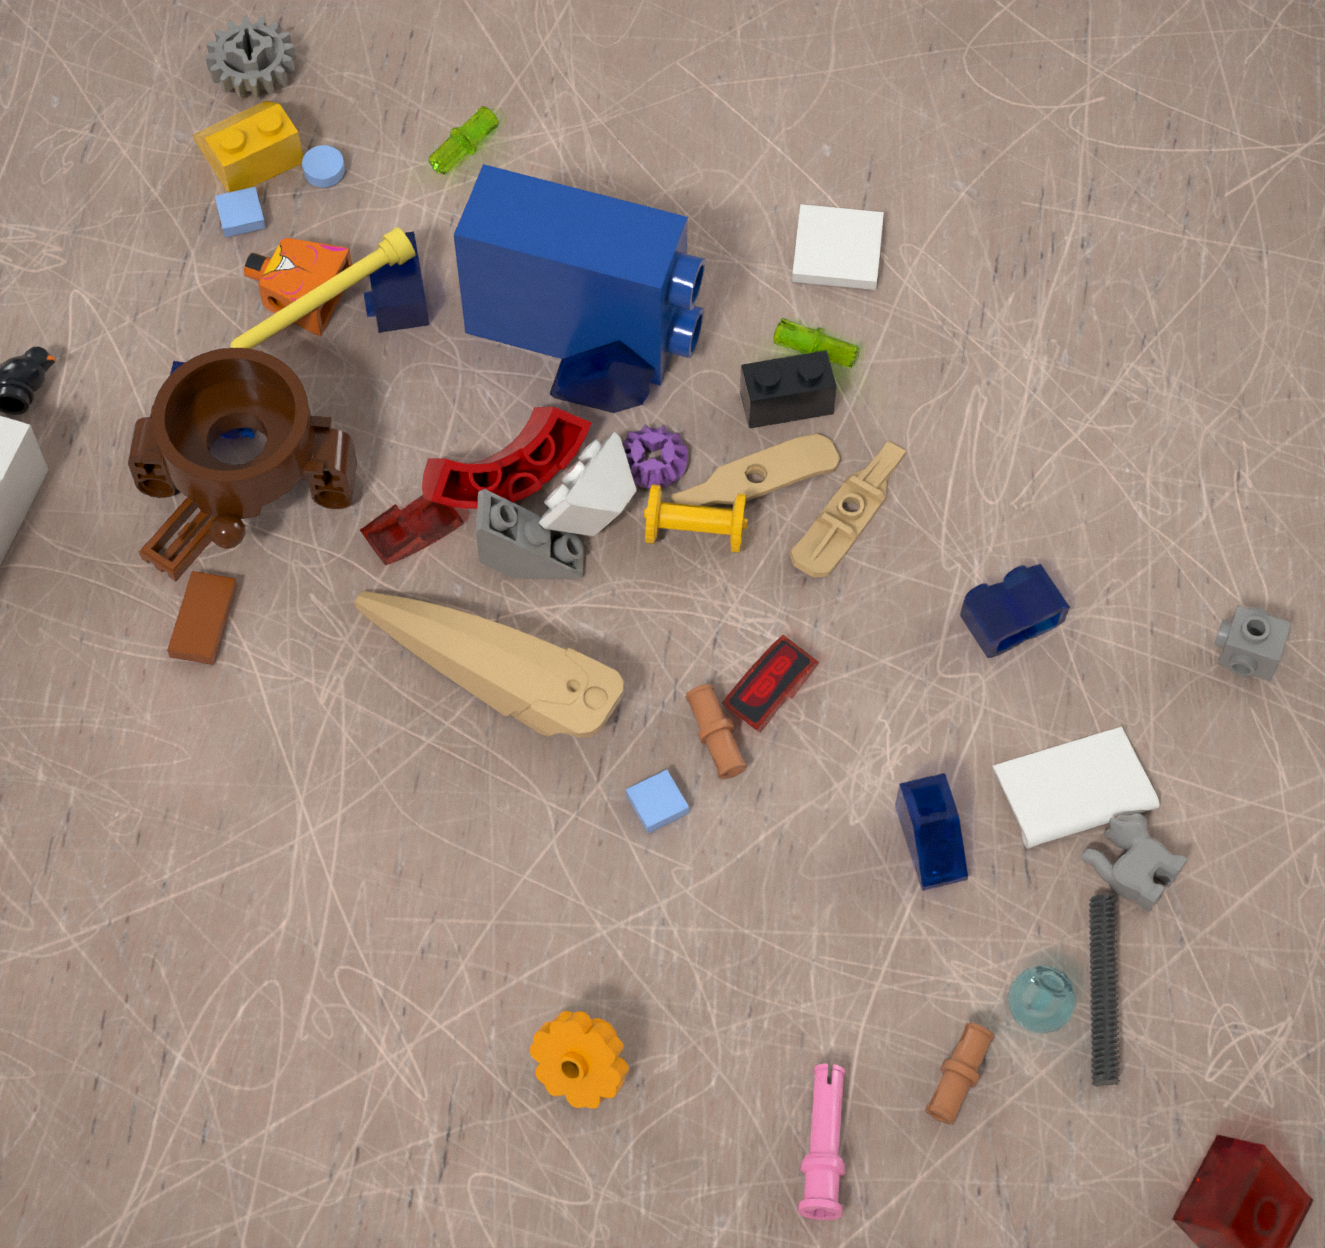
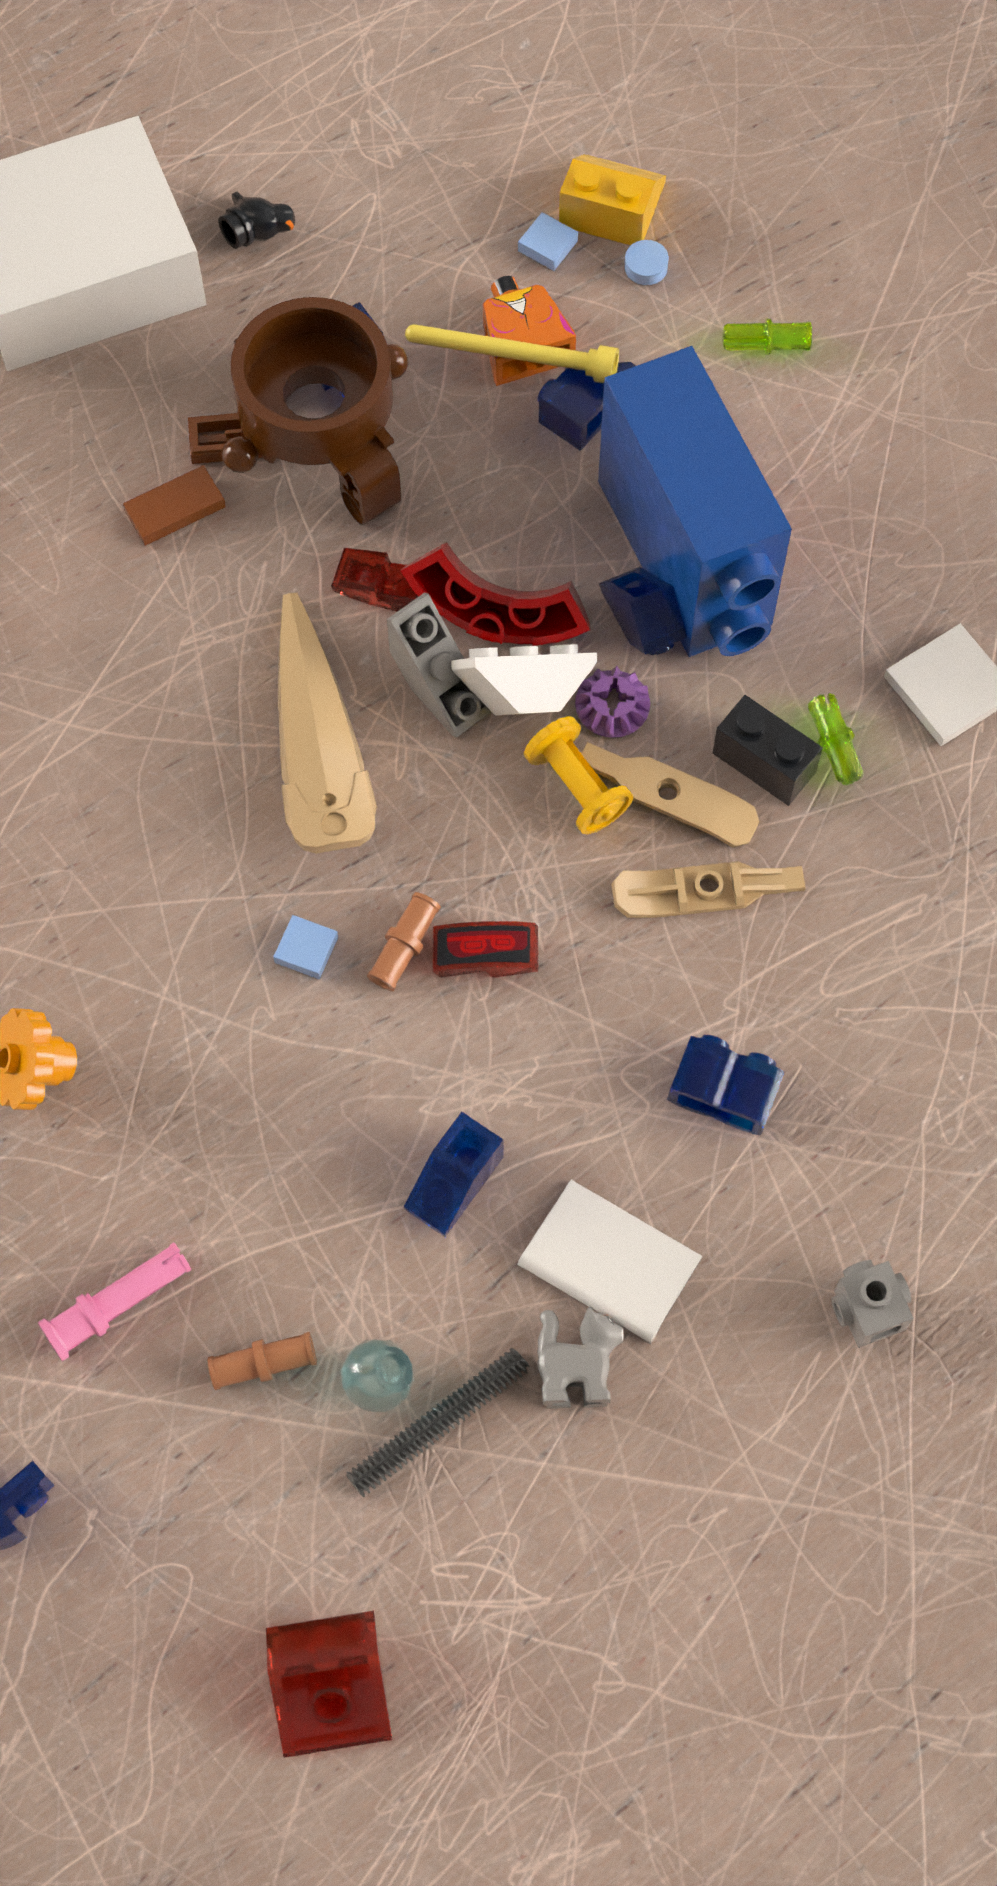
camera: 50 degrees right, 5 degrees up
(231, 52) = (690, 132): light grey gear -> none

